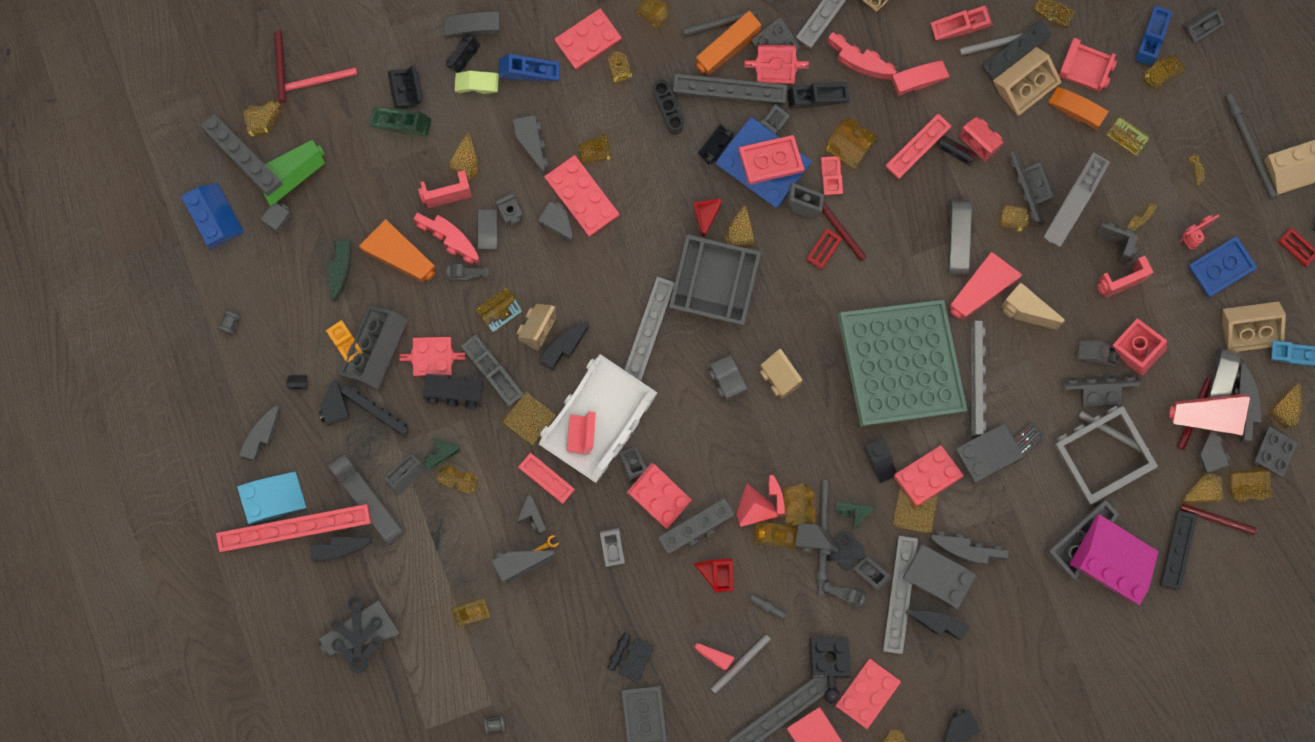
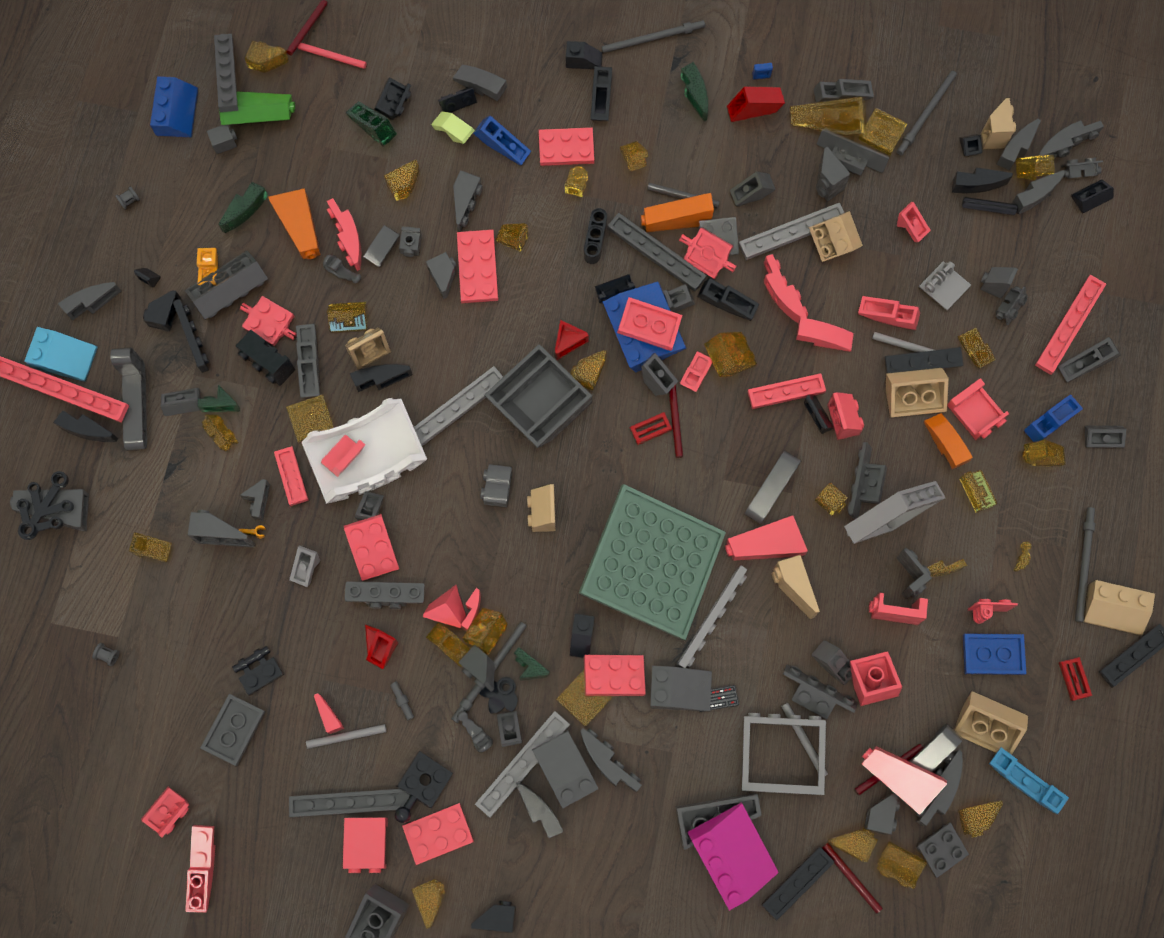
camera: 35 degrees right, 5 degrees down
(446, 194) = (367, 198): coral panel -> none

